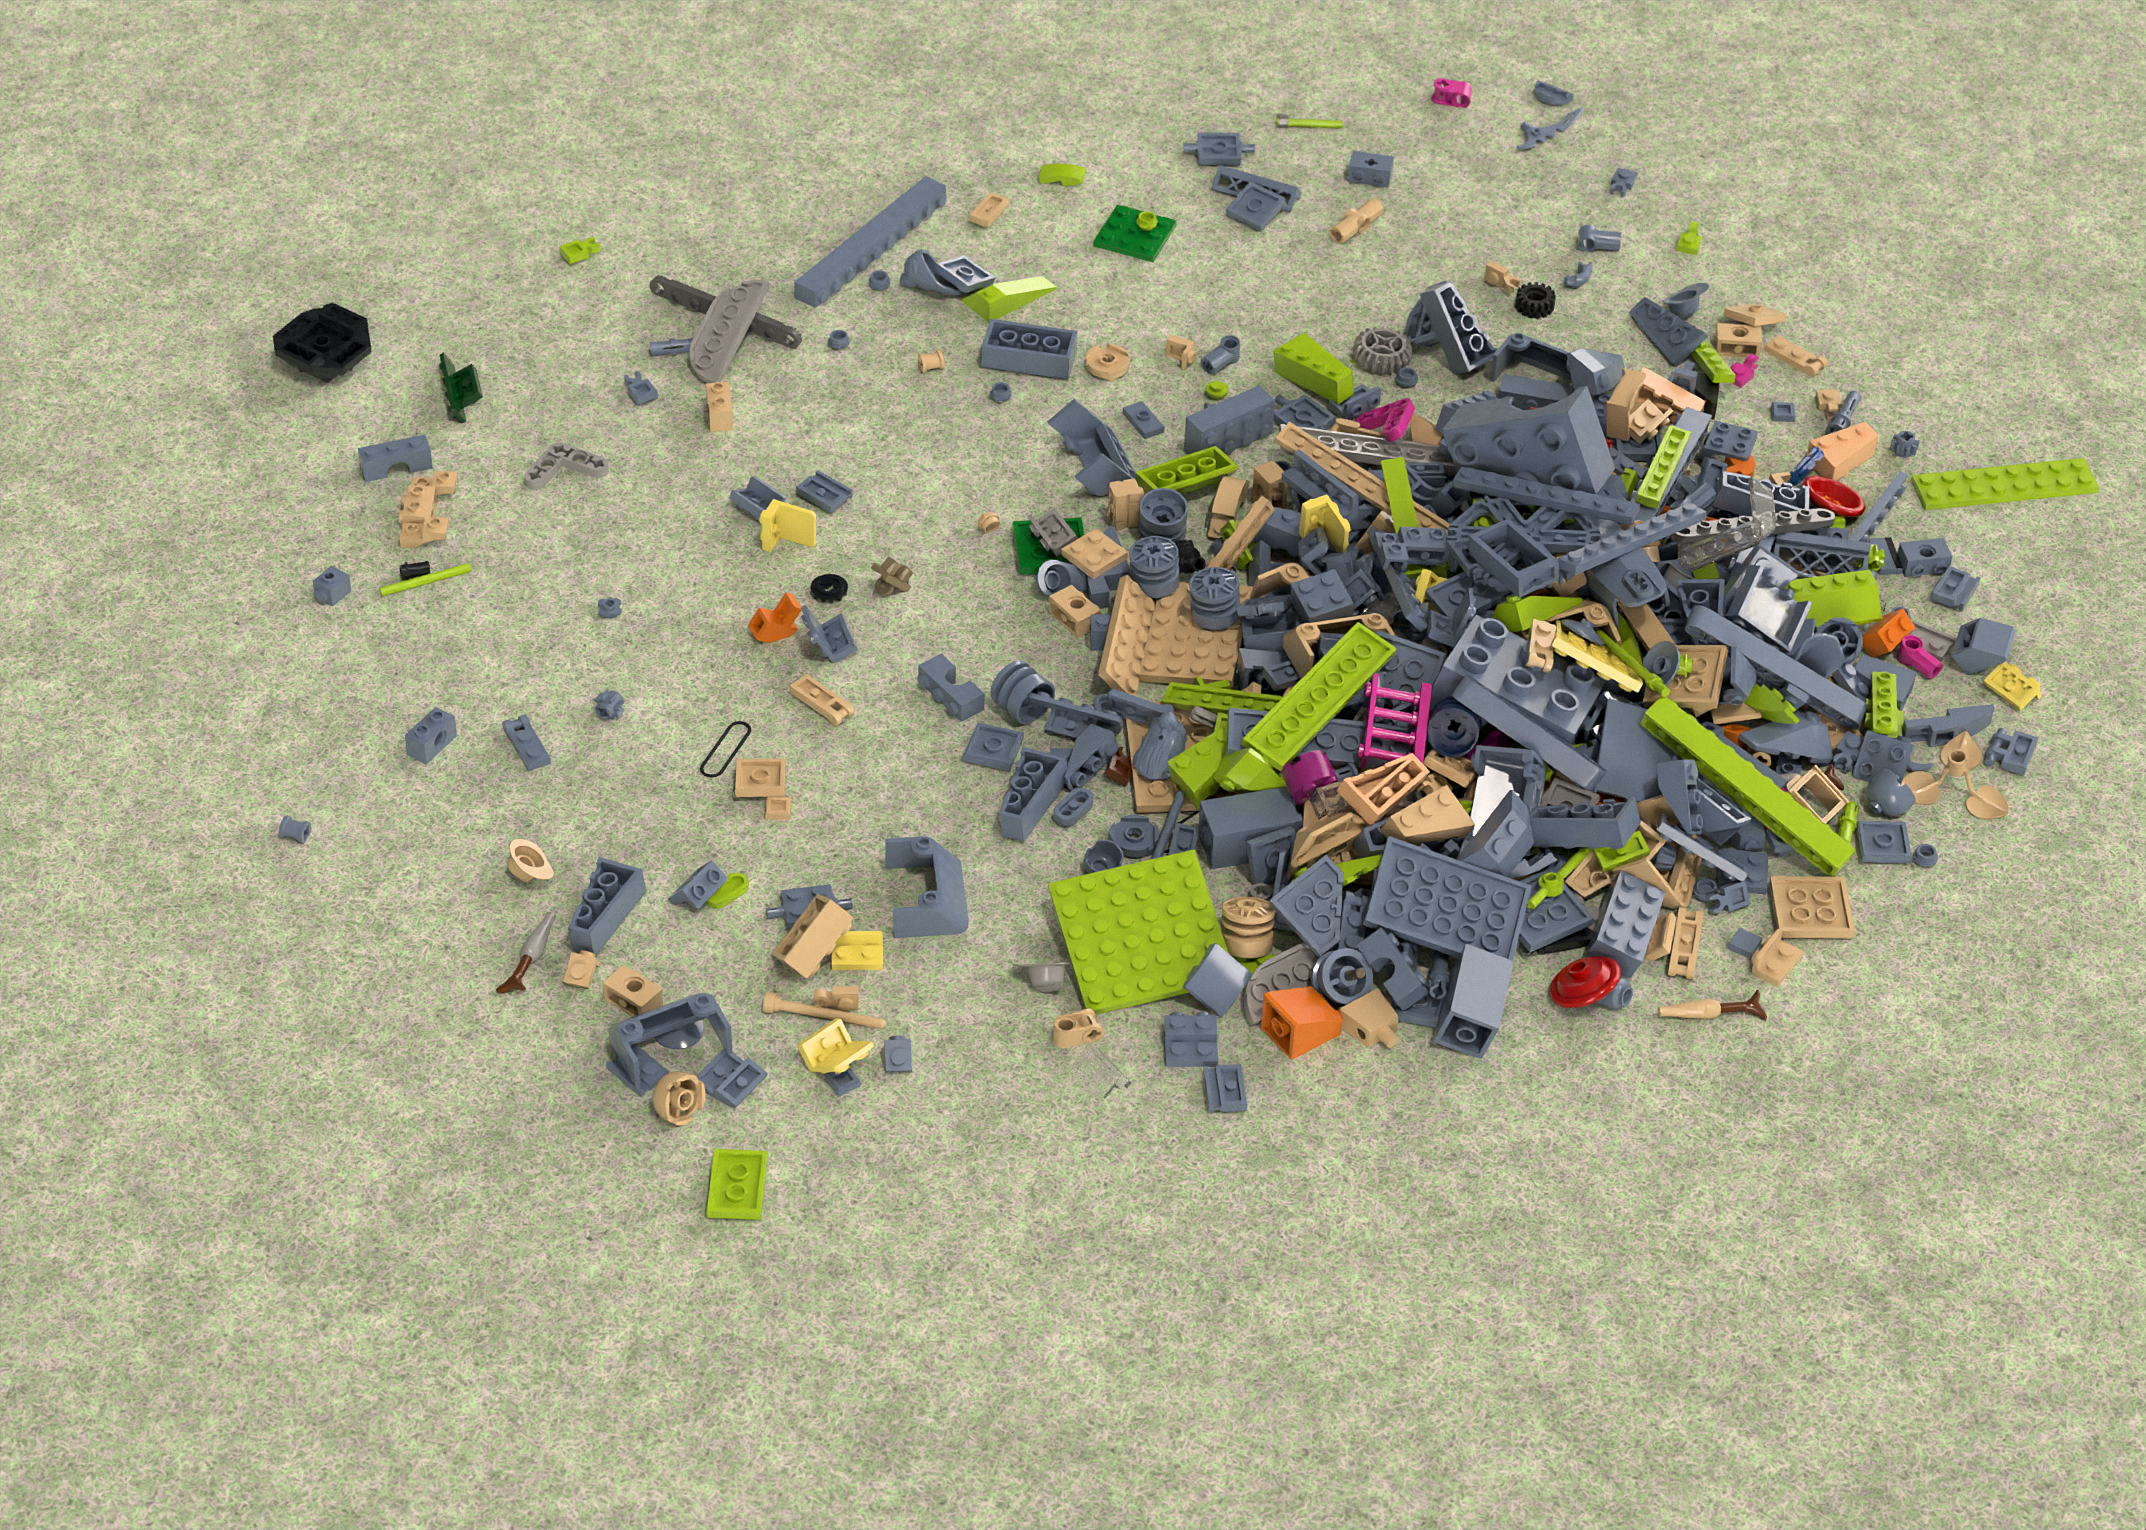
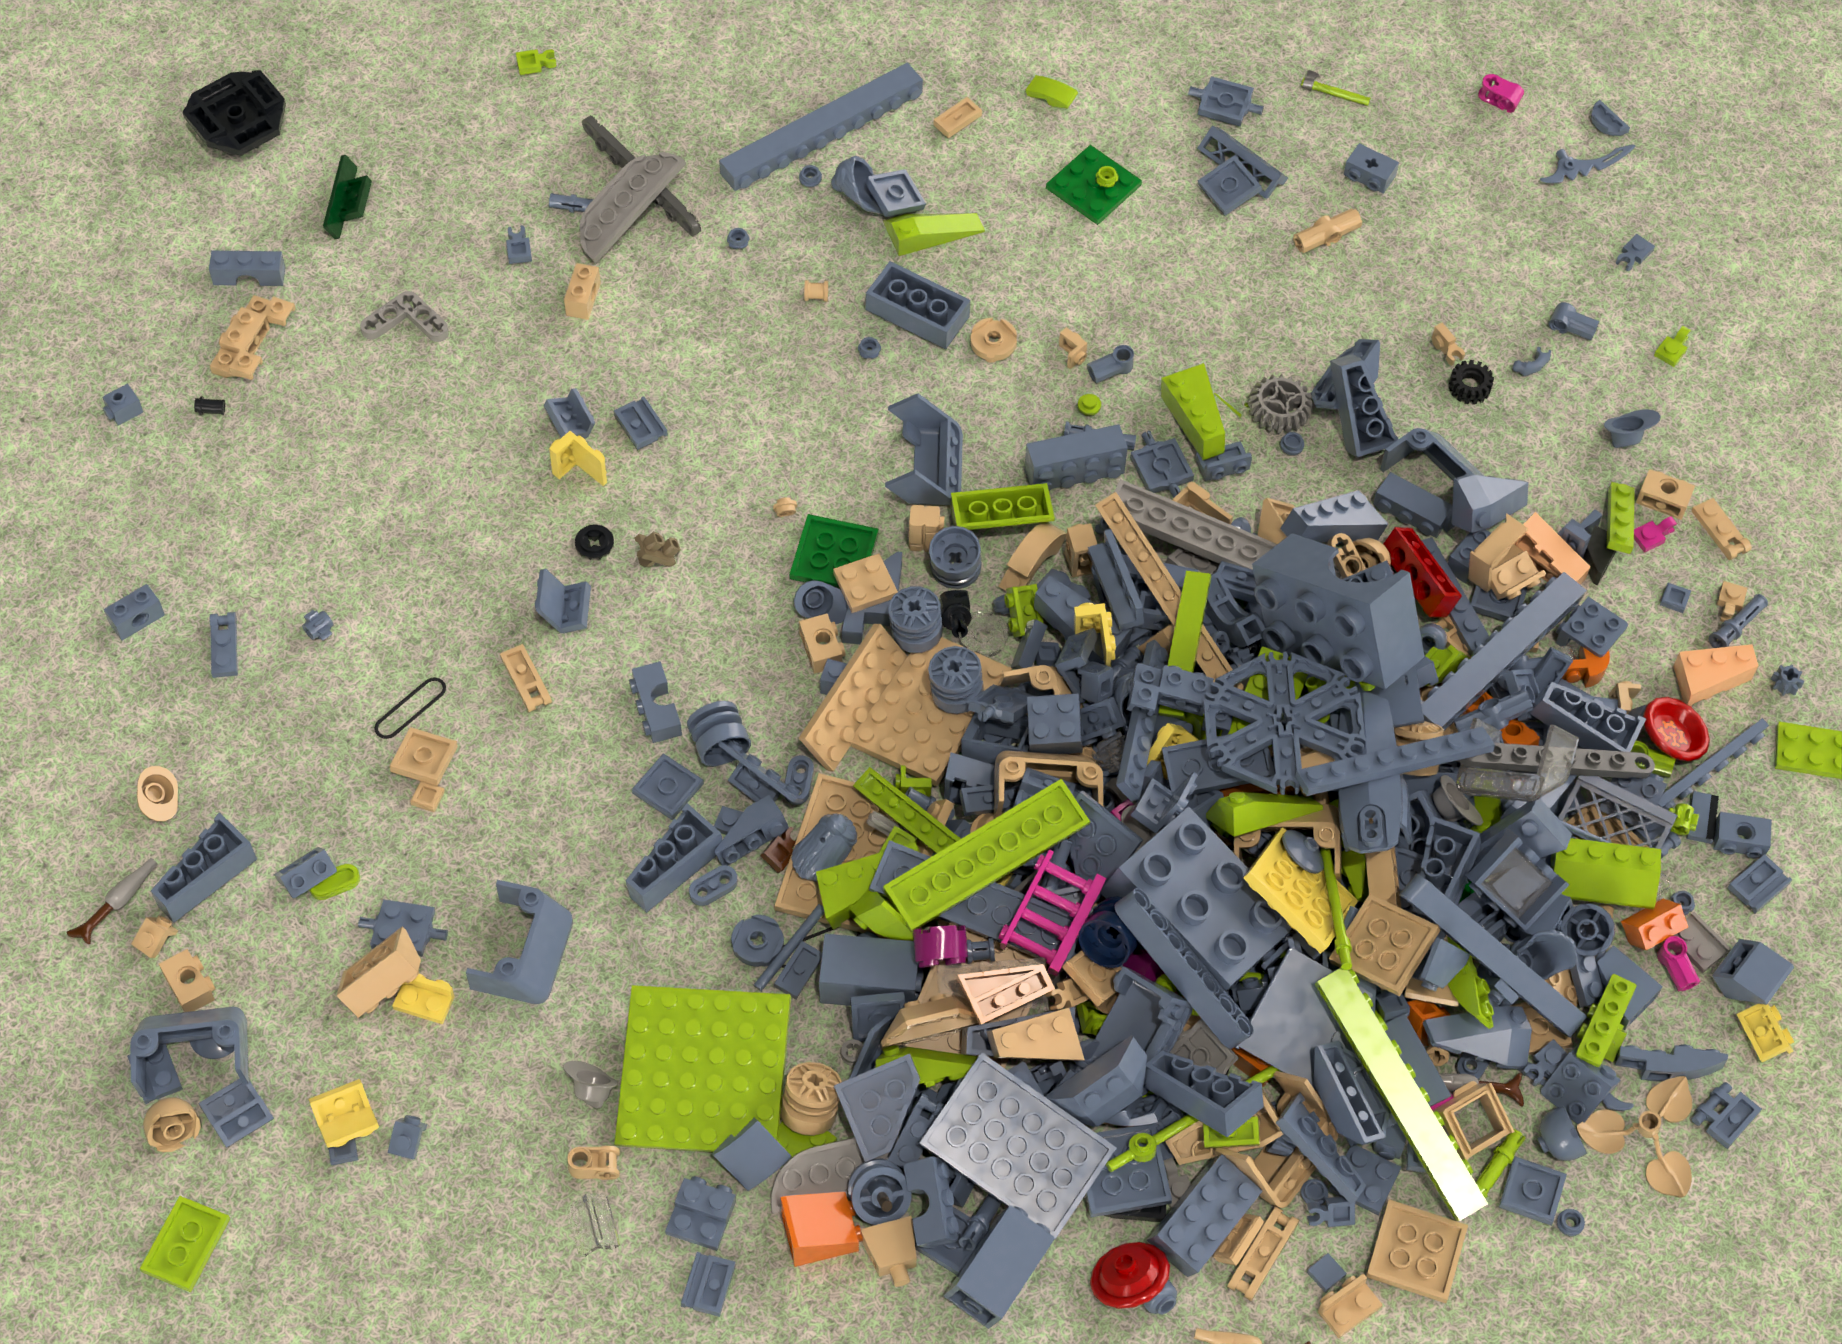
camera: 20 degrees right, 15 degrees up
(425, 579) = (216, 419): lime bar -> none
(609, 607) = (373, 510): sand blue plate -> none
(773, 1003) = (316, 1035): tan piece -> none
(777, 623) = (517, 572): orange brick -> none
(841, 998) = (381, 1052): tan plate -> none
(1053, 530) = (836, 542): light grey bracket -> none
(1103, 856) = (707, 959): sand blue hair -> none
(1135, 707) = (824, 791): sand blue plate -> none
(1143, 420) = (998, 421): sand blue plate -> none
(1243, 535) = (1013, 614): tan plate -> none
(1393, 418) = (1248, 499): dark pink beam -> none
(1519, 582) = (1260, 784): sand blue window -> none
(1540, 645) = (1237, 864): tan plate -> none
(1546, 495) = (1331, 676): sand blue plate -> none
(1663, 467) = (1493, 653): lime plate -> none
(1663, 660) = (1361, 925): sand blue dish -> none
(1669, 332) = (1593, 461): sand blue wing -> none
(1679, 788) = (1319, 1083): sand blue slope -> none
(1685, 665) = (1383, 935): lime plate -> none
(1754, 314) = (1697, 467): tan plate -> none
(1806, 465) = (1663, 679): blue axle -> none

